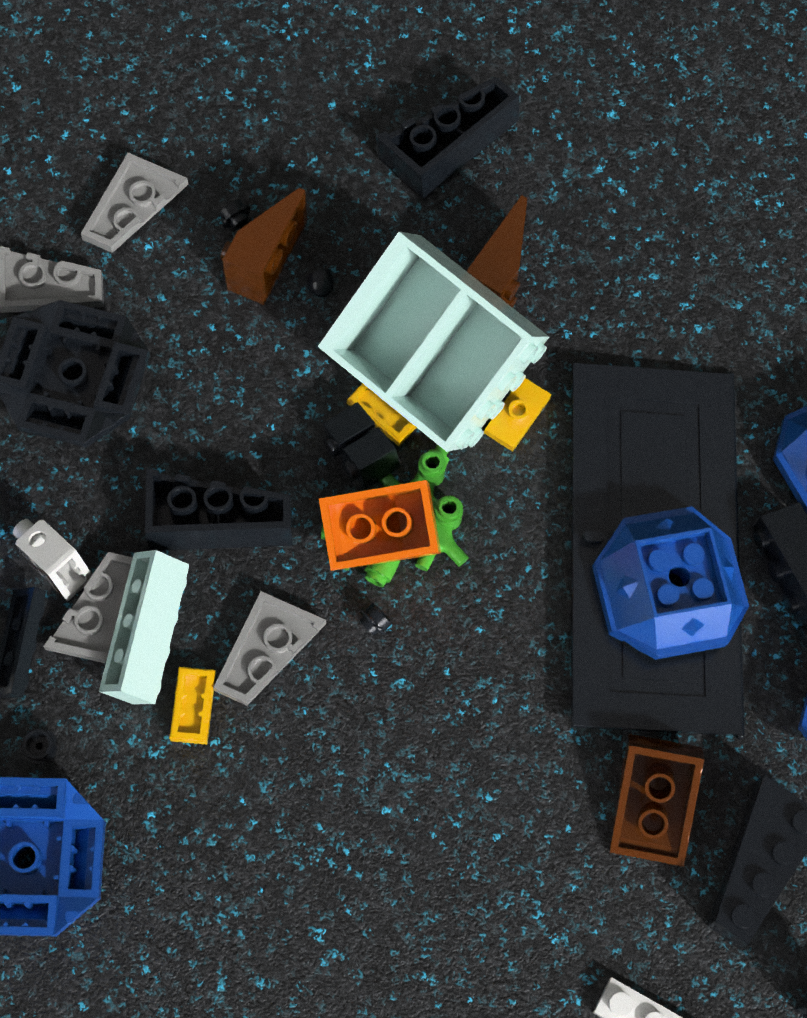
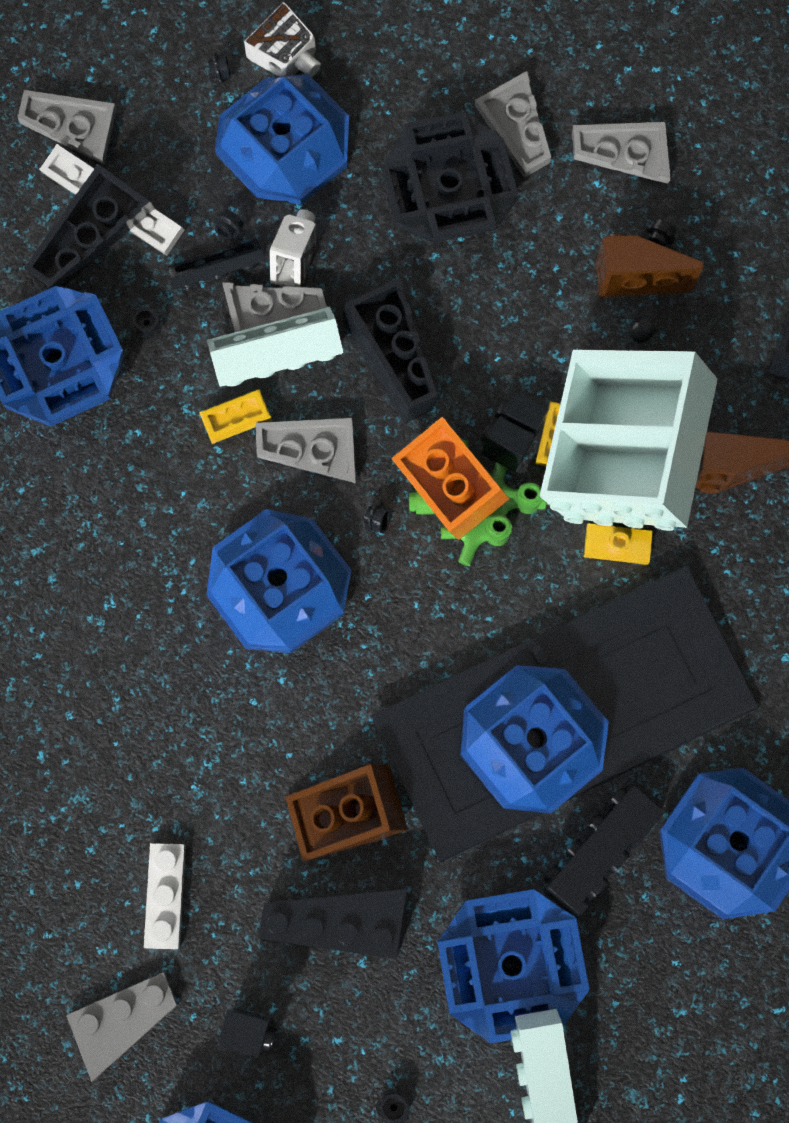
camera: 65 degrees right, 5 degrees up
(395, 787) = (286, 614): none -> blue piece

